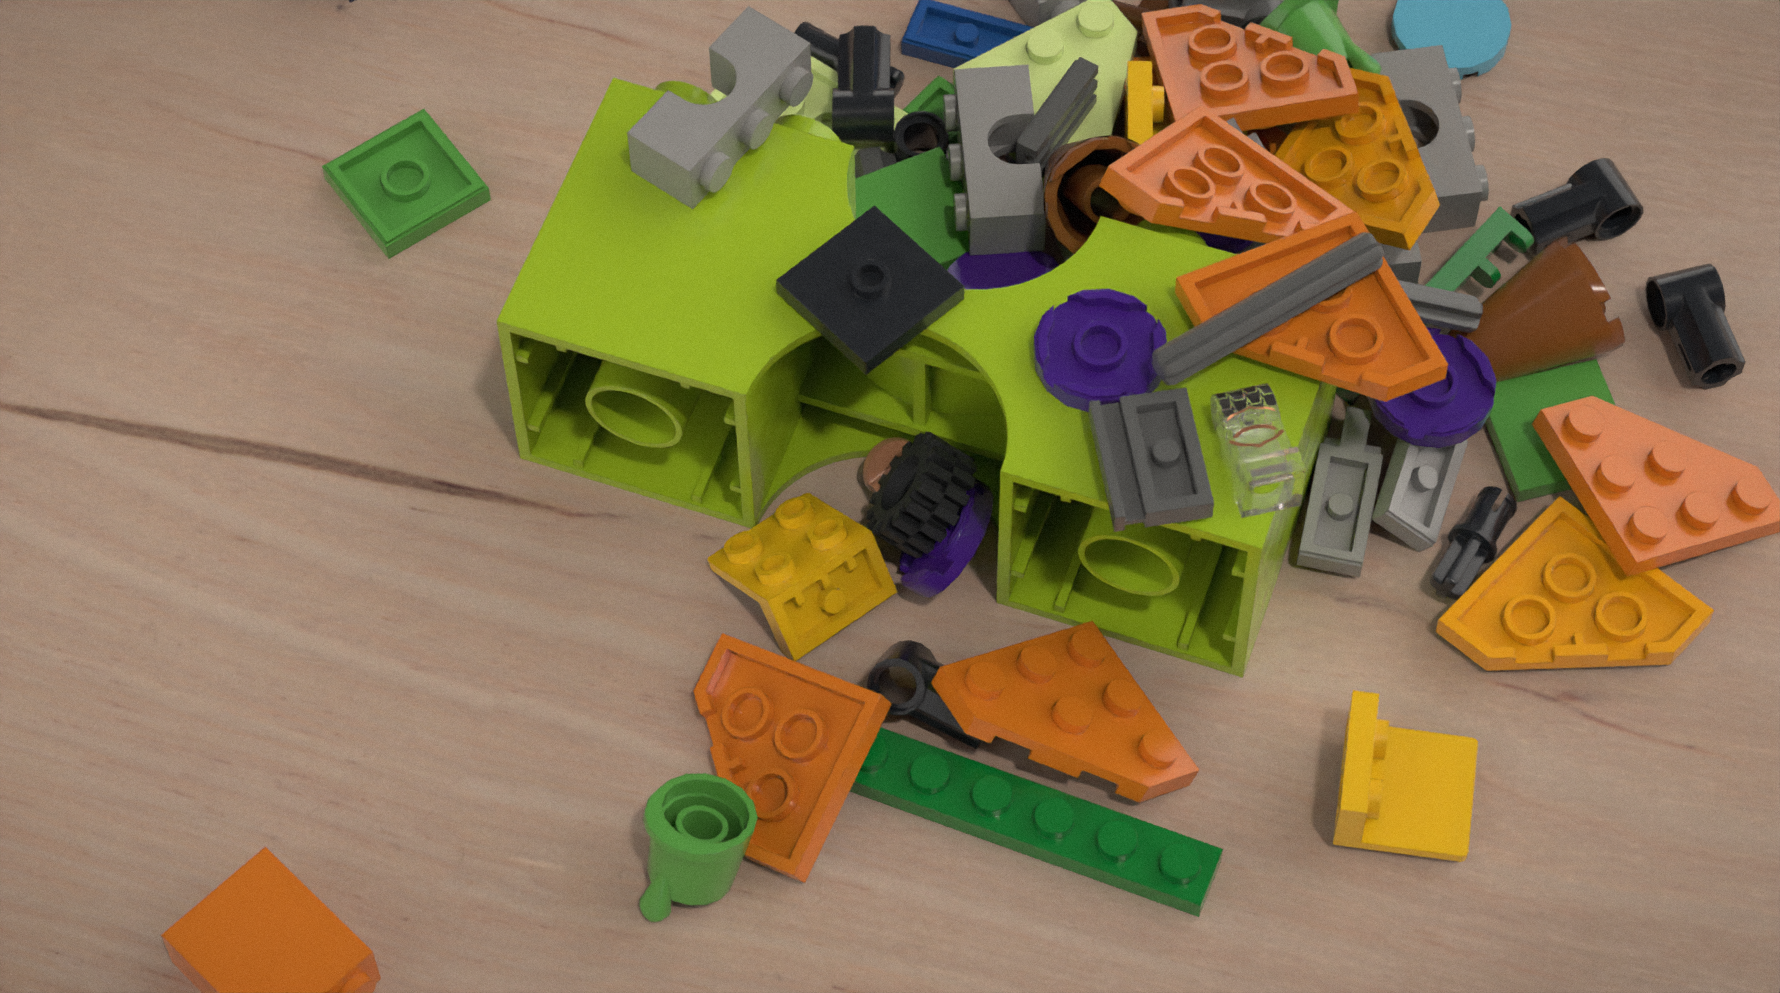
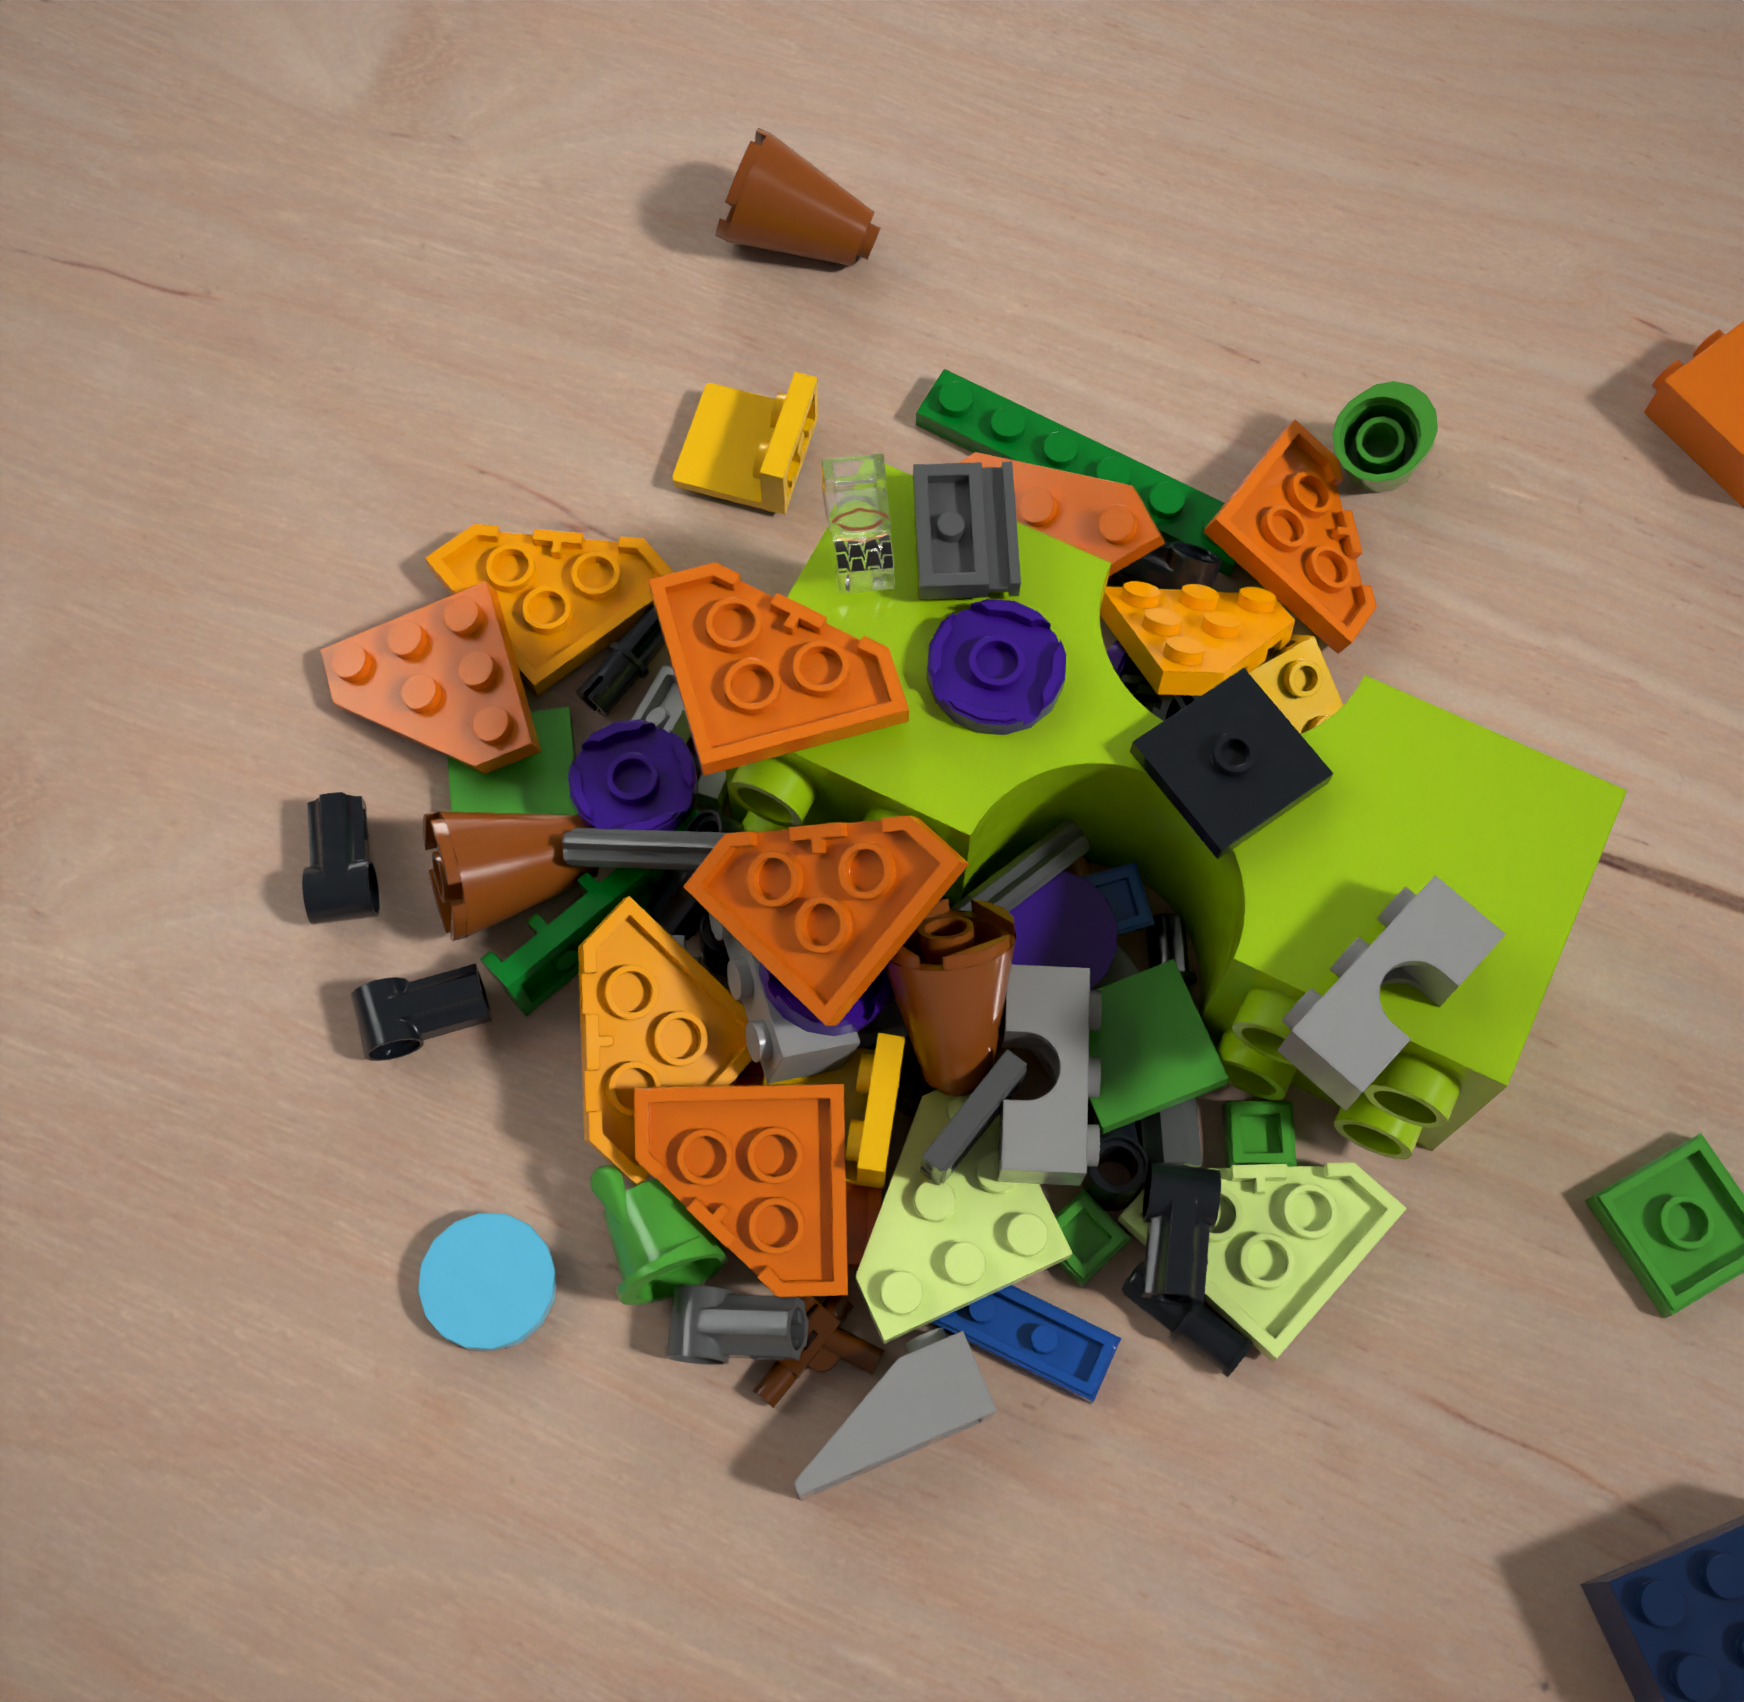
camera: 175 degrees left, 10 degrees up
(893, 562) = (1194, 635): none -> light orange plate
(1267, 308) = (820, 644): dark grey axle -> none
(1430, 104) = (548, 1173): light grey arch -> none

